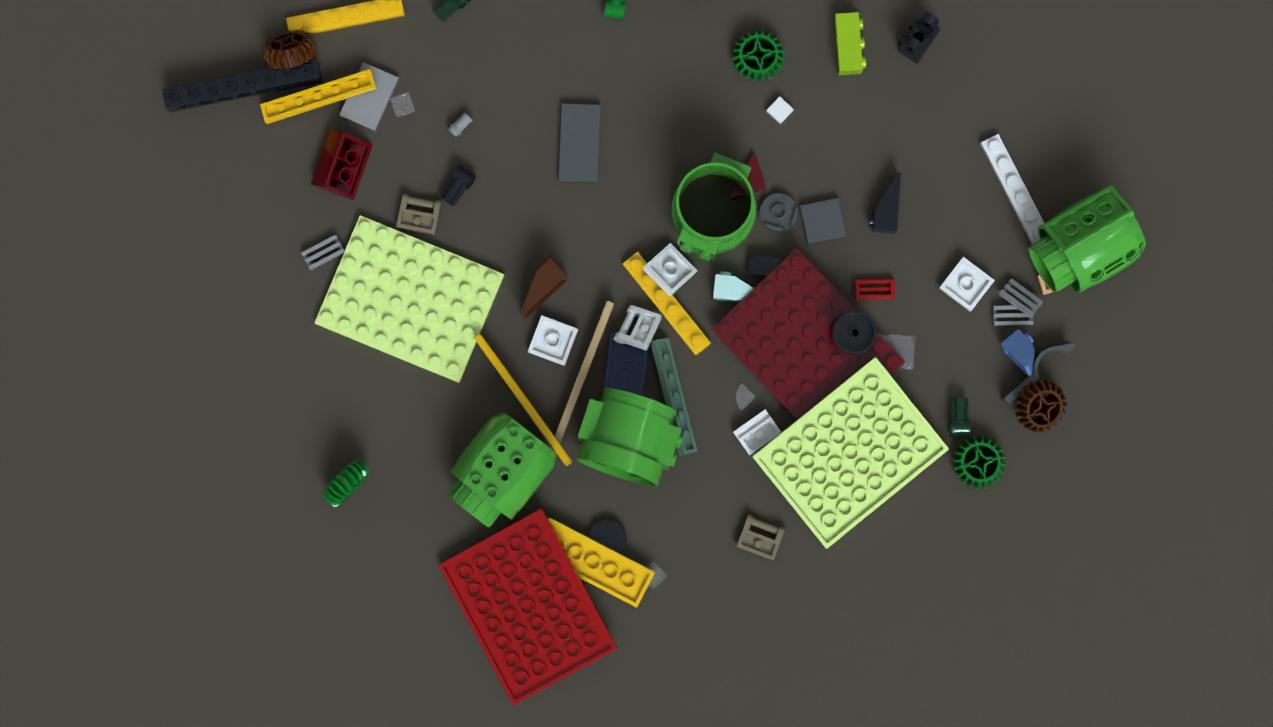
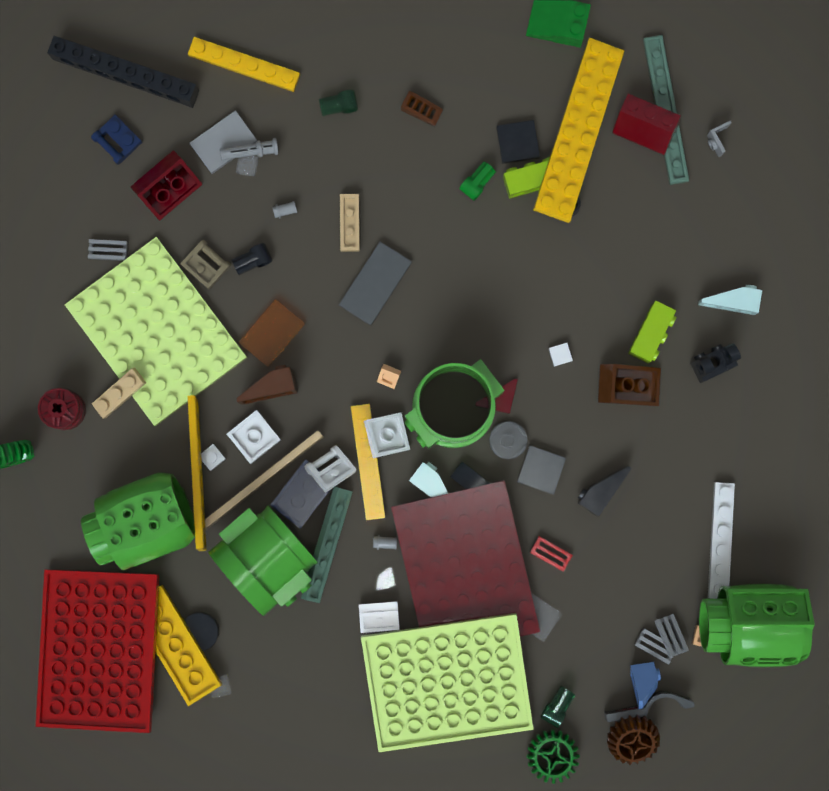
camera: 30 degrees right, 0 degrees up
(274, 144) = (121, 135): none -> dark blue plate
(289, 49) = (178, 63): reddish brown gear -> none
(318, 96) = (180, 117): yellow plate -> none
(372, 426) = (72, 409): none -> dark red wheel
(405, 84) = (259, 149): none -> light grey pin
(410, 372) = (119, 393): none -> tan plate
(514, 240) = (271, 333): none -> clear orange tile
(525, 102) = (349, 223): none -> tan plate
(527, 380) = (212, 457): none -> white plate
(640, 217) = (389, 376): none -> light nougat plate
(723, 365) = (384, 542): none -> light grey pin
(758, 543) = (324, 713): dark tan plate -> none
(760, 72) = (561, 295): green gear -> none
(850, 321) = (517, 592): black wheel -> none
(856, 101) = (629, 385): none -> reddish brown slope
(966, 284) = (632, 596): white plate -> none

